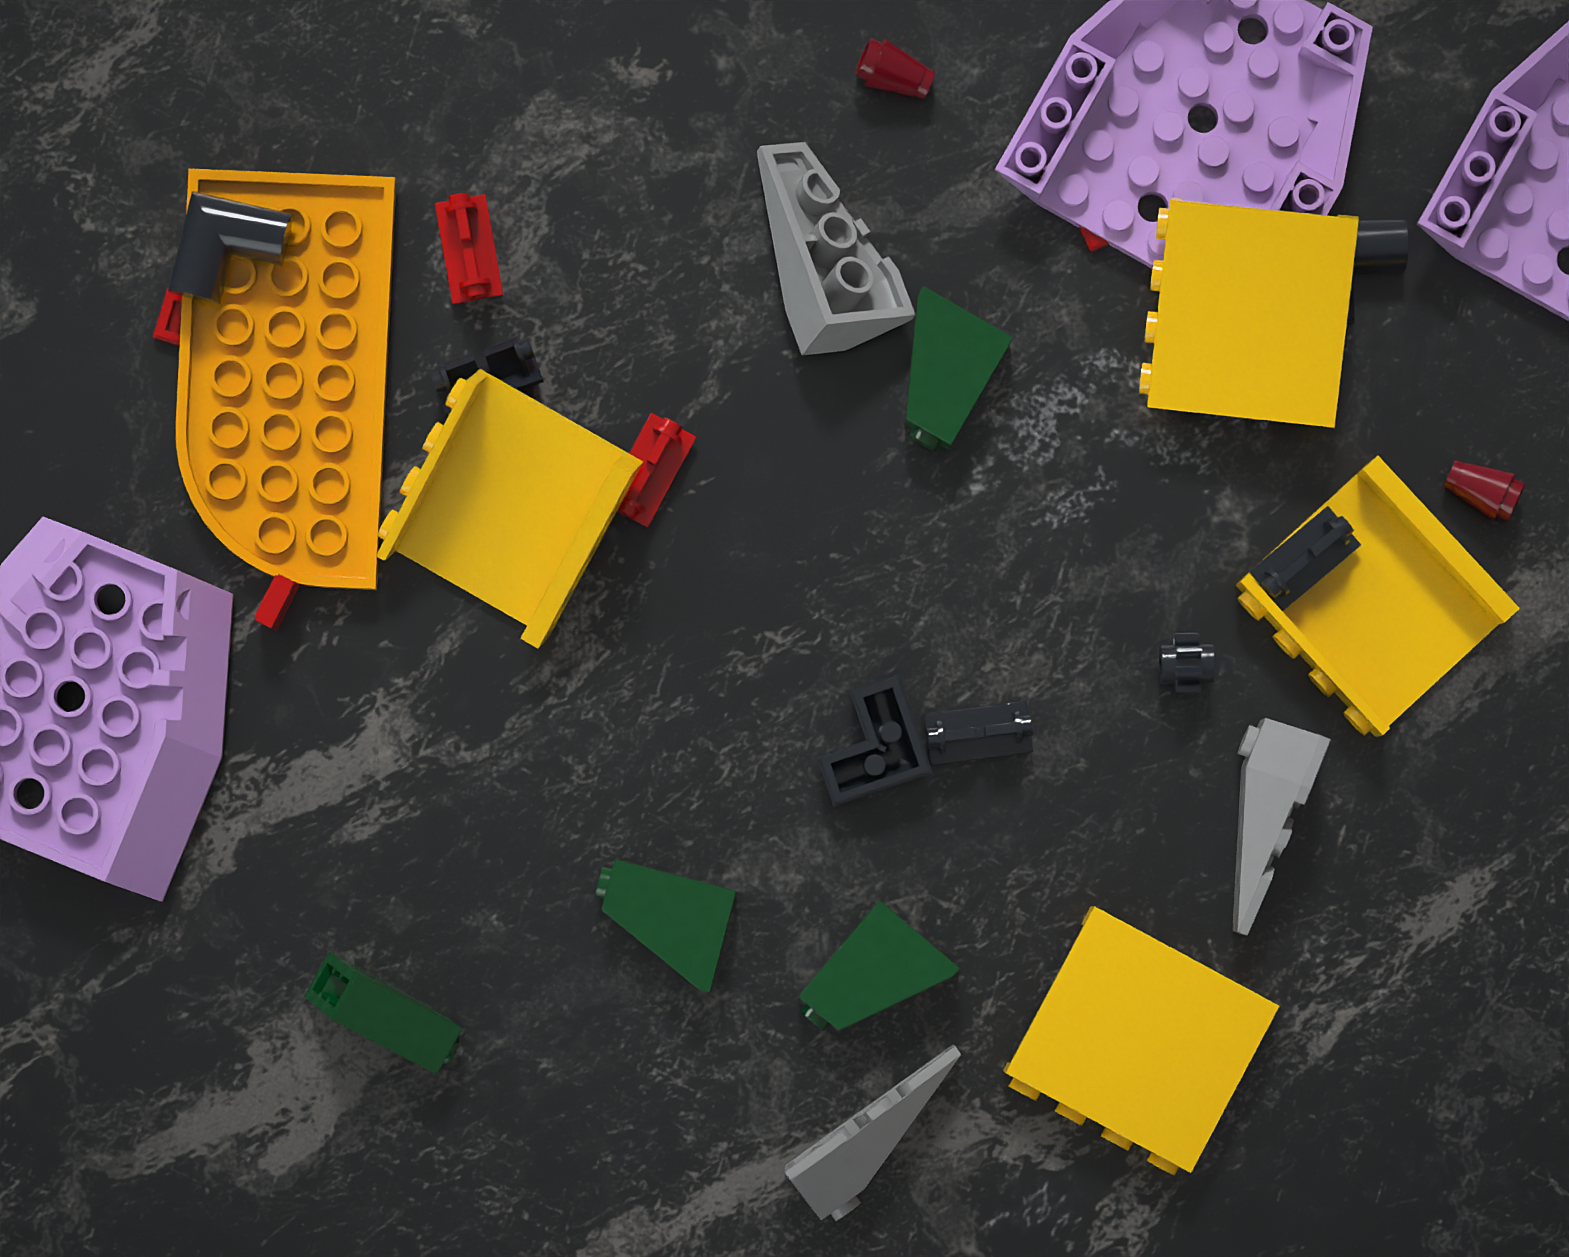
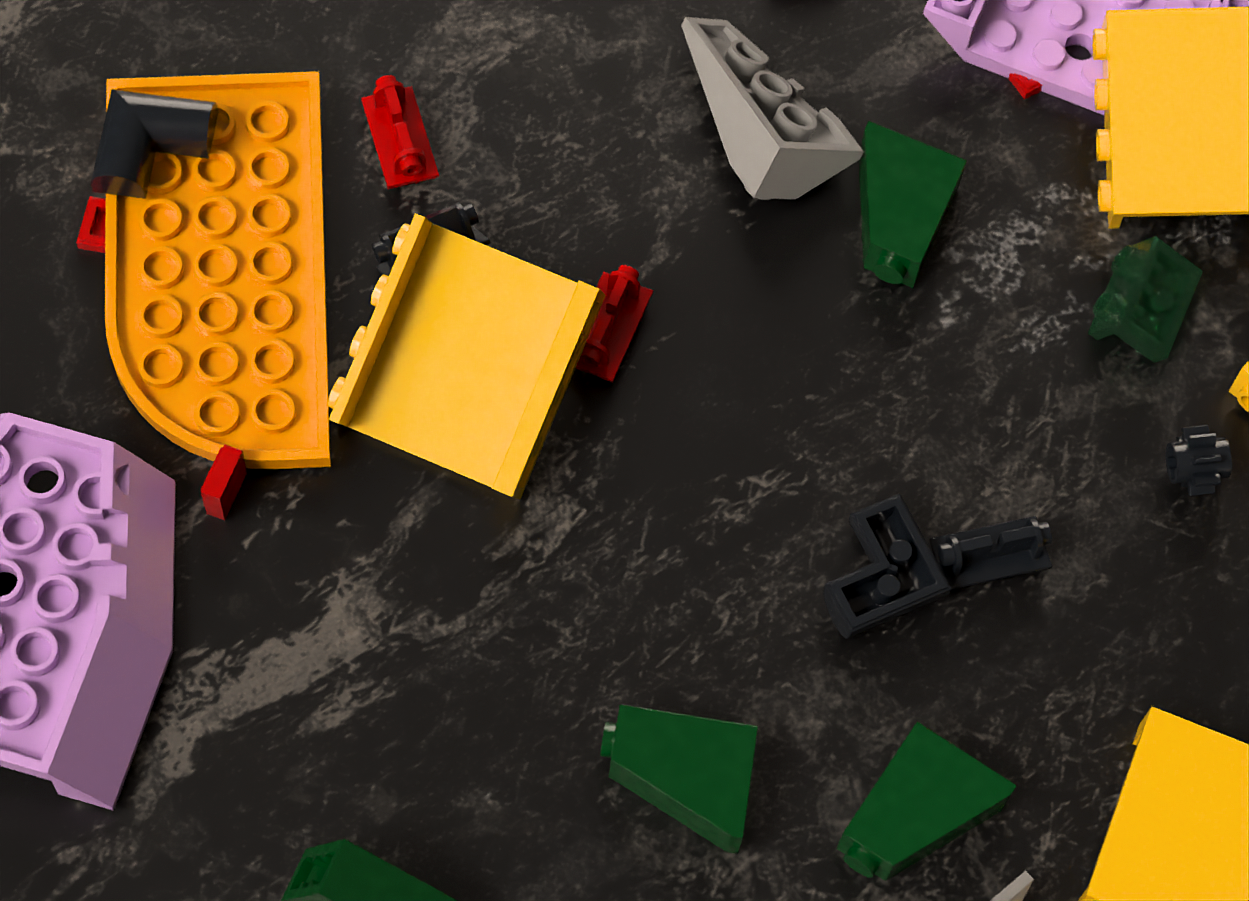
camera: 10 degrees left, 20 degrees down
(1168, 489) = (1146, 298): none -> clear green bracket

